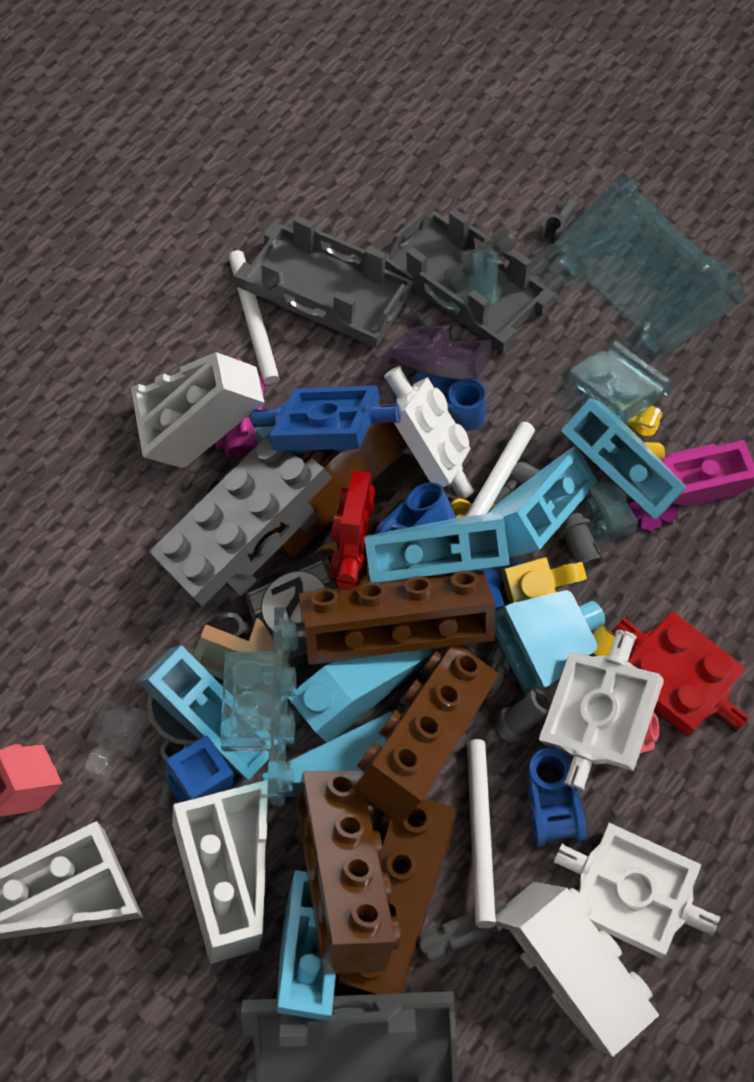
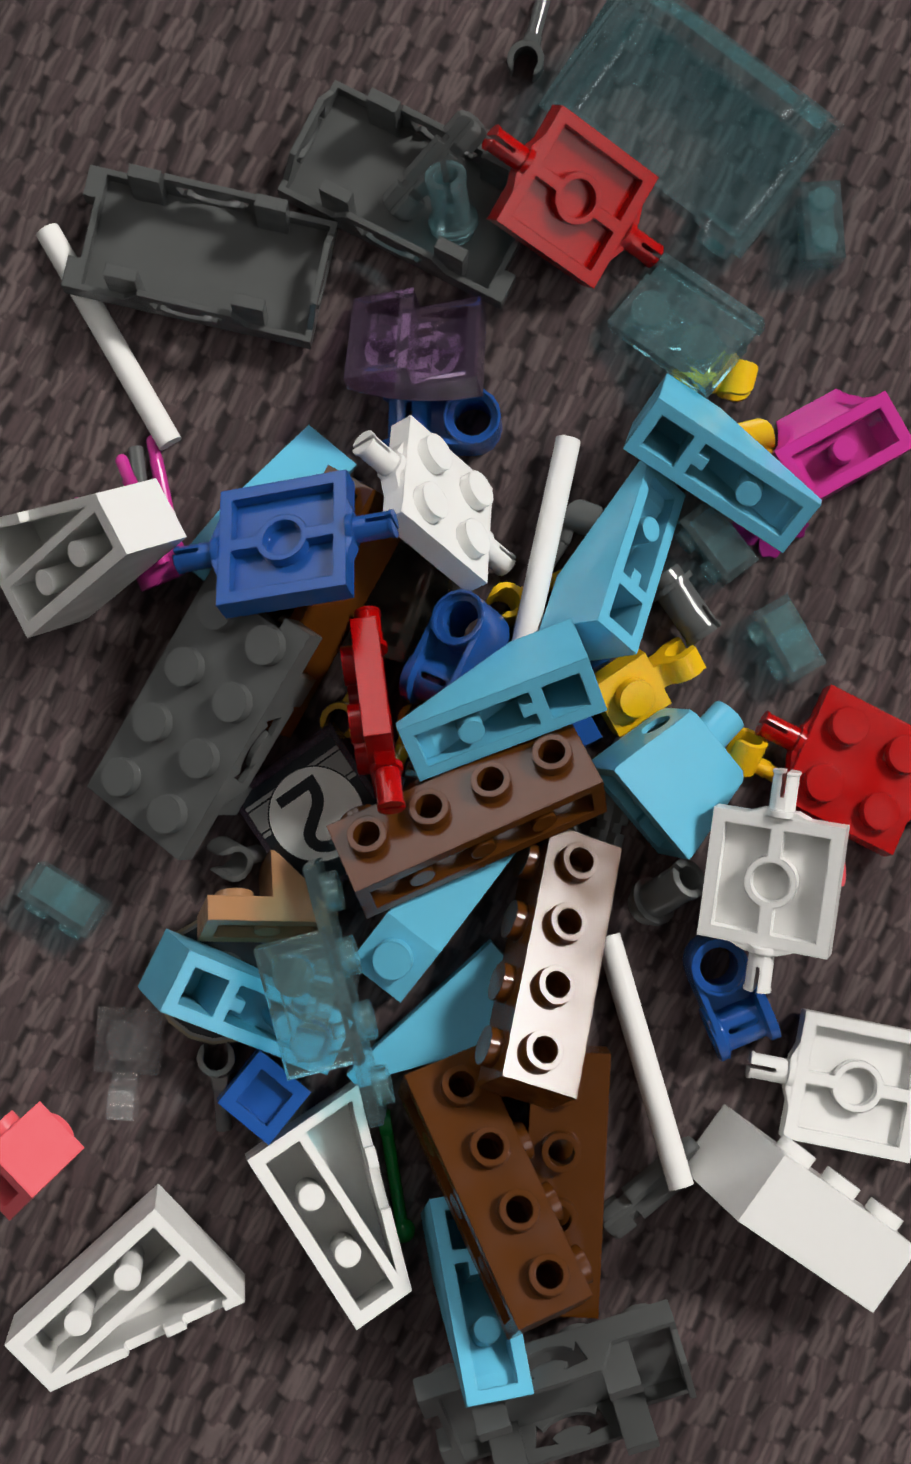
camera: 20 degrees left, 25 degrees up
(108, 625) = (65, 900): none -> clear light blue piece
(270, 911) = (404, 1226): none -> green hinge
(563, 292) = (573, 196): none -> red plate
(647, 579) = (785, 640): none -> clear light blue piece
(720, 347) = (820, 225): none -> clear light blue piece

